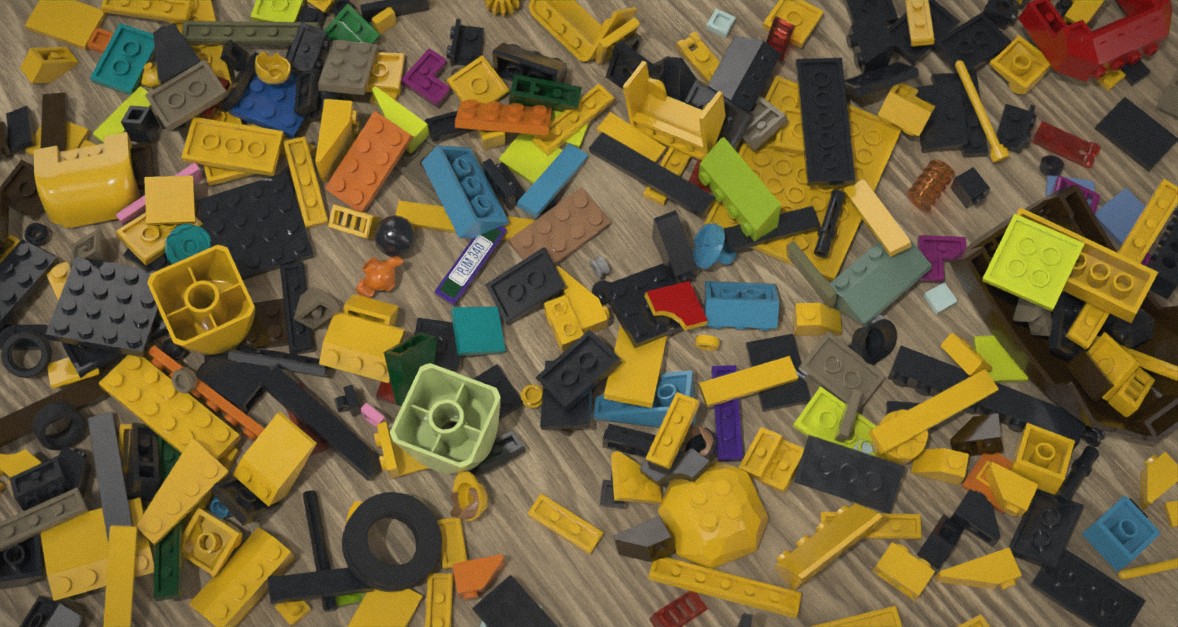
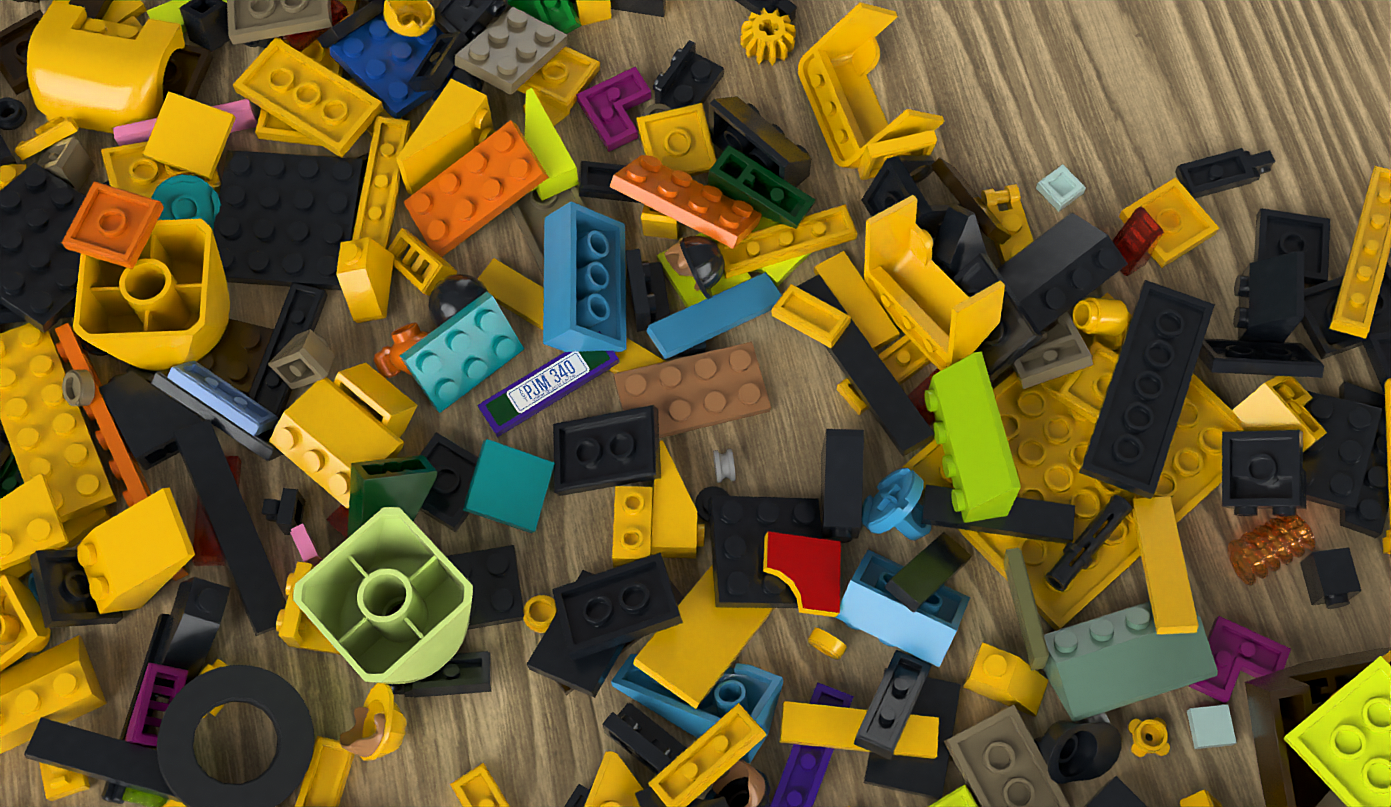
camera: 25 degrees right, 0 degrees up
(71, 237) = (47, 135): none -> yellow tile
(165, 269) = (113, 225): none -> orange tile
(276, 350) = (223, 397): none -> medium blue tile
(325, 544) = (143, 702): none -> magenta slope
(326, 244) = (365, 278): none -> yellow slope
(328, 493) = (192, 627): none -> black slope
(411, 263) = (462, 352): none -> teal plate
(528, 150) = (697, 258): none -> black piece
(609, 158) = (811, 316): none -> yellow tile
(672, 51) = (970, 200): none -> dark brown tile
(747, 277) = (928, 572): none -> tile
(761, 358) = (892, 704): none -> black tile
(780, 90) = (1101, 316): none -> yellow brick
(909, 143) = (1263, 472): none -> black plate
(910, 312) = (1157, 729): none -> yellow plate

